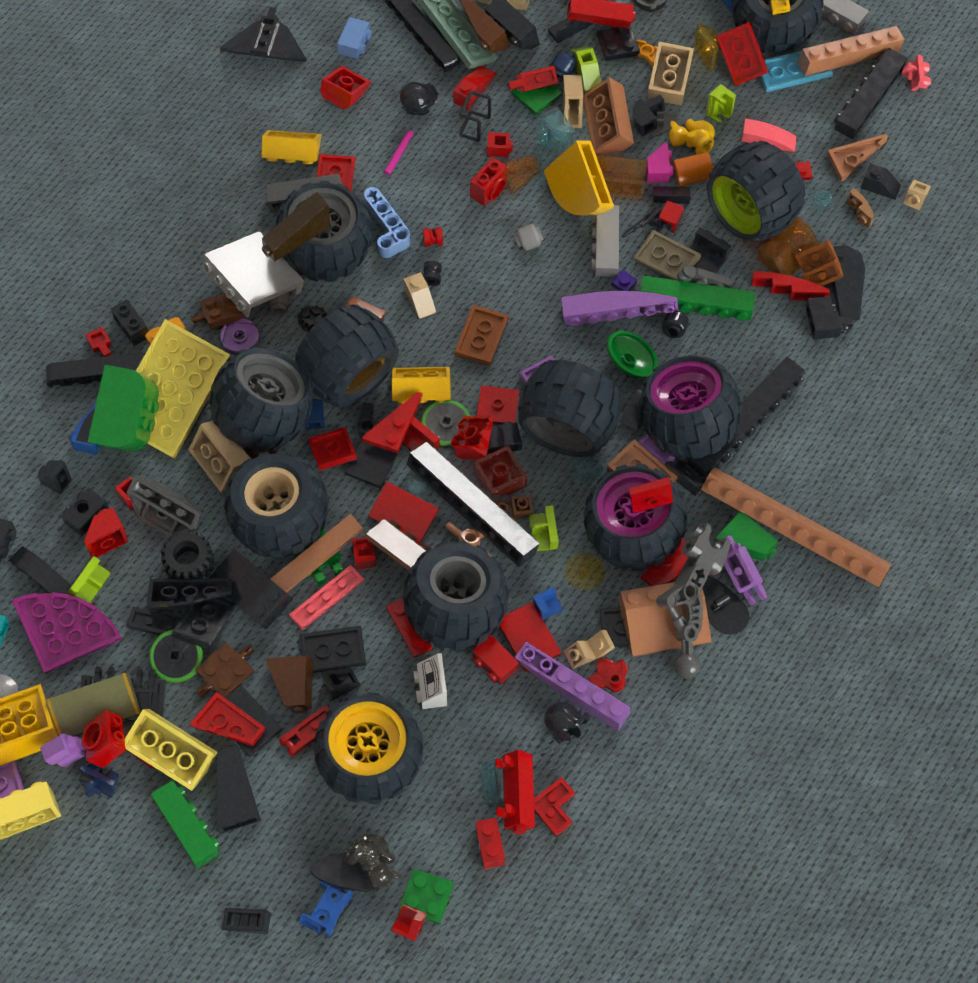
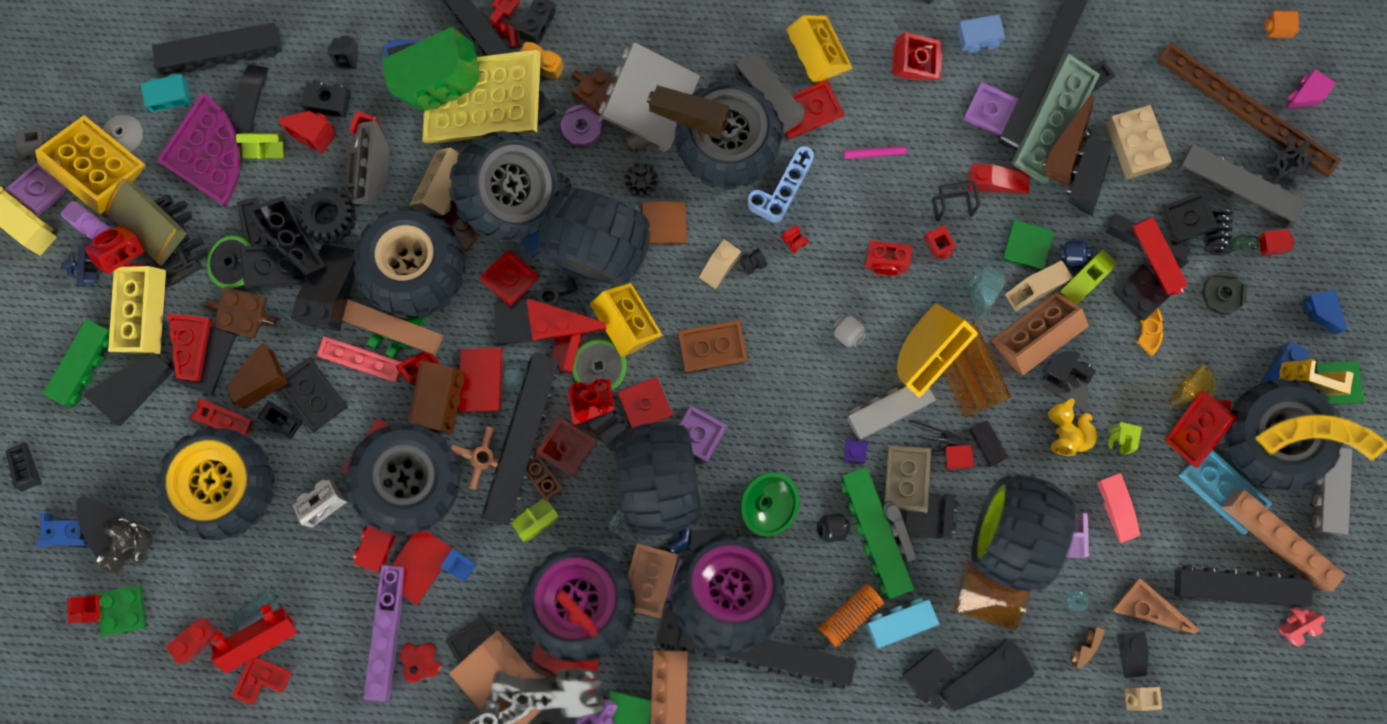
camera: 60 degrees right, 15 degrees up
(125, 349) = (509, 33): none -> red arm
(416, 62) = (990, 109): none -> medium lavender plate
(418, 97) = (945, 134): black hair -> none
(521, 171) = (924, 280): clear orange wing -> none
(534, 80) = (1038, 235): red hinge -> none
(564, 721) = (344, 645): black hair -> none
(585, 571) = (511, 580): clear yellow piece -> none
(587, 651) = (433, 629): tan slope -> none
(614, 305) = (813, 454): medium lavender slope -> none
(624, 434) = (680, 543): none -> dark blue arm
(658, 166) = (1013, 412): dark pink slope -> none
(670, 73) = (1131, 366): tan brick -> none
(692, 169) = (1030, 451): orange brick -> none
(762, 360) = (826, 629): none -> orange piece
(774, 315) = (902, 622): none -> medium azure brick
(784, 284) = (948, 628): red slope -> none
(804, 169) = (1099, 562): red plate -> none
(820, 264) = (985, 640): dark orange slope -> none

